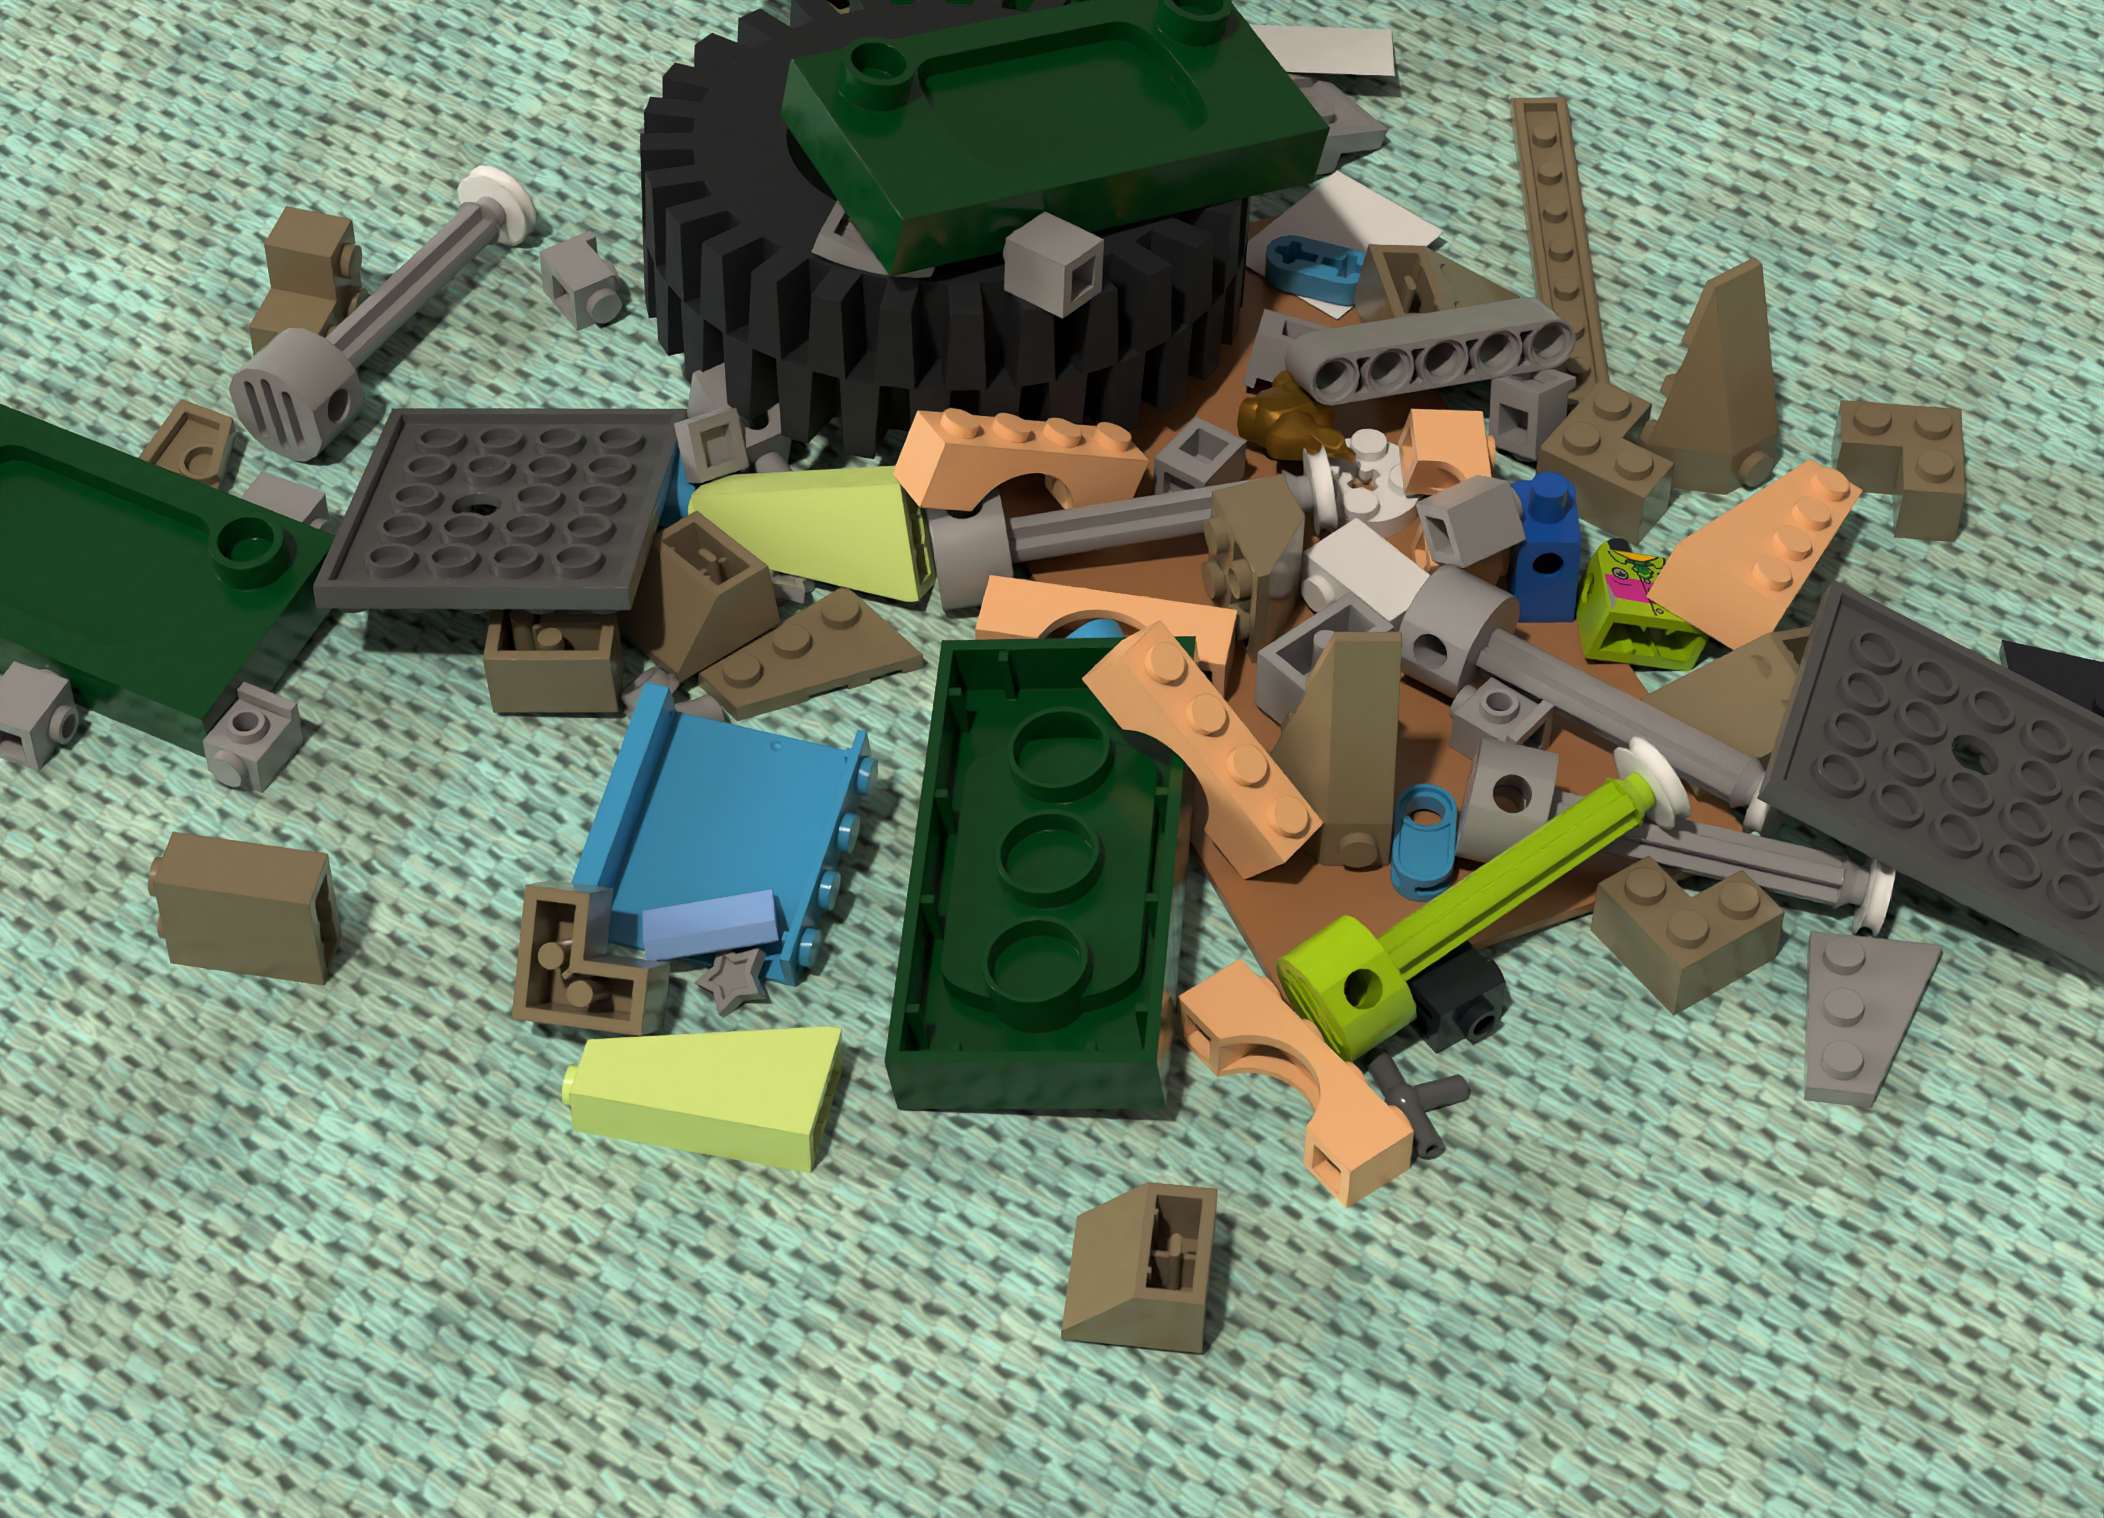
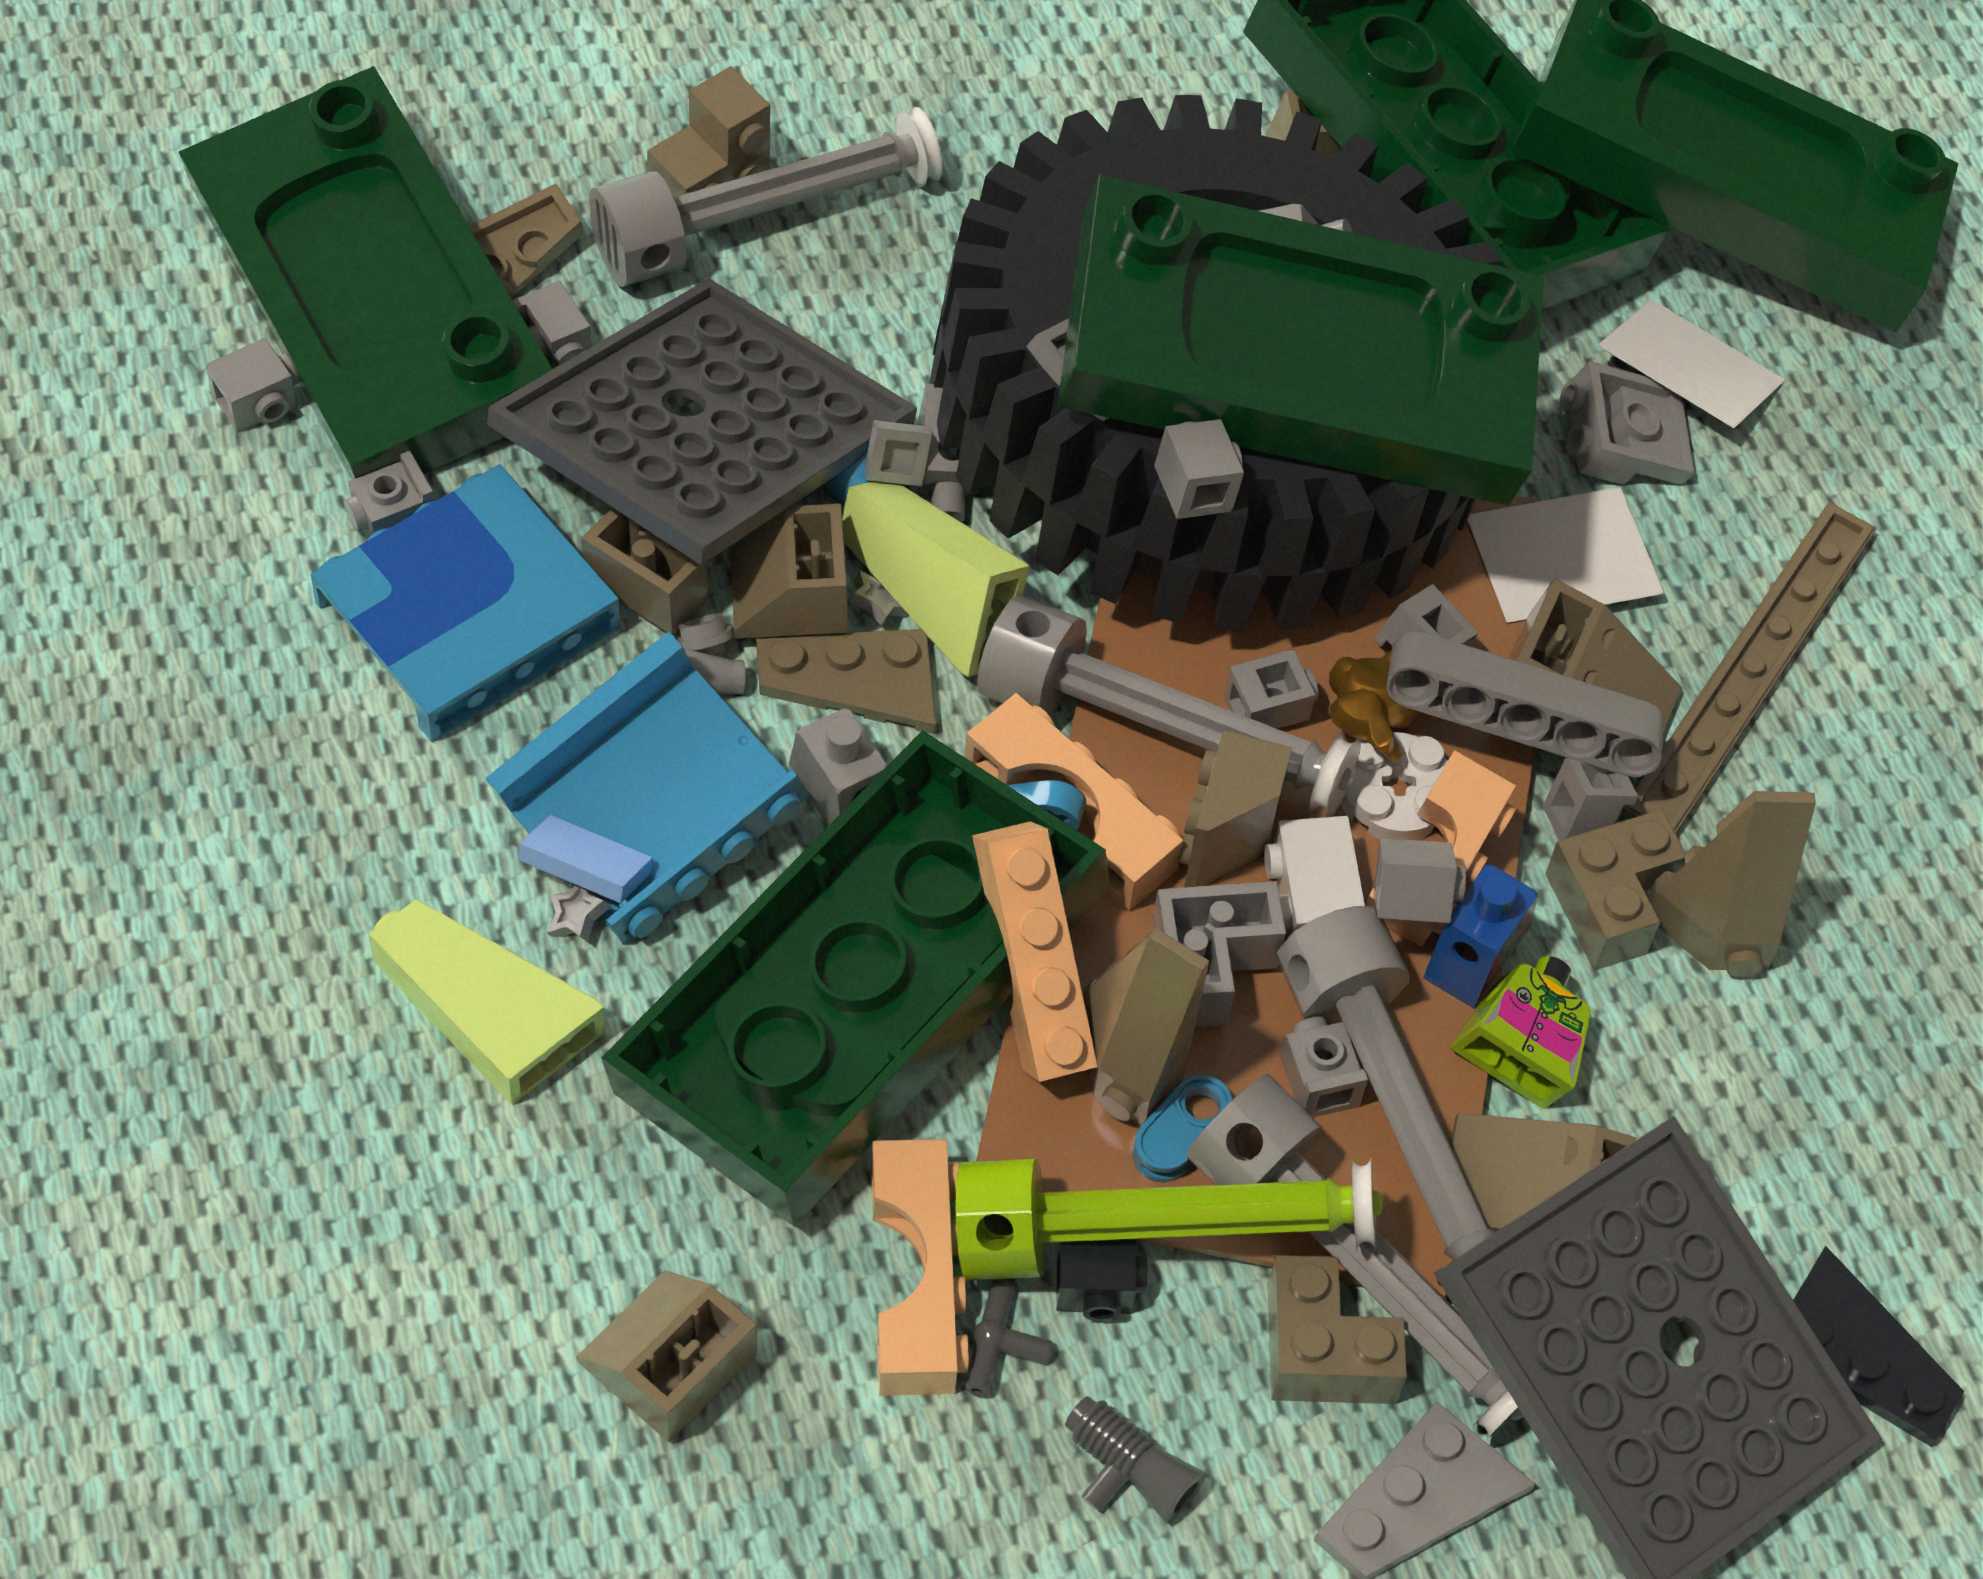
camera: 30 degrees right, 10 degrees up
(246, 908) = (265, 640): dark tan brick -> none
(406, 774) = (469, 599): none -> dark azure panel
(566, 966) = (448, 839): dark tan brick -> none
(581, 281) = (932, 246): light grey brick -> none
(891, 712) = (834, 762): none -> light grey torso
(961, 457) = (1051, 584): light nougat arch -> none
(1316, 269) = (1517, 573): dark azure beam -> none
(1604, 1119) = (1133, 1457): none -> dark grey piece
(1754, 559) = (1649, 1052): light nougat wedge -> none
(1906, 454) = (1882, 1027): dark tan brick -> none

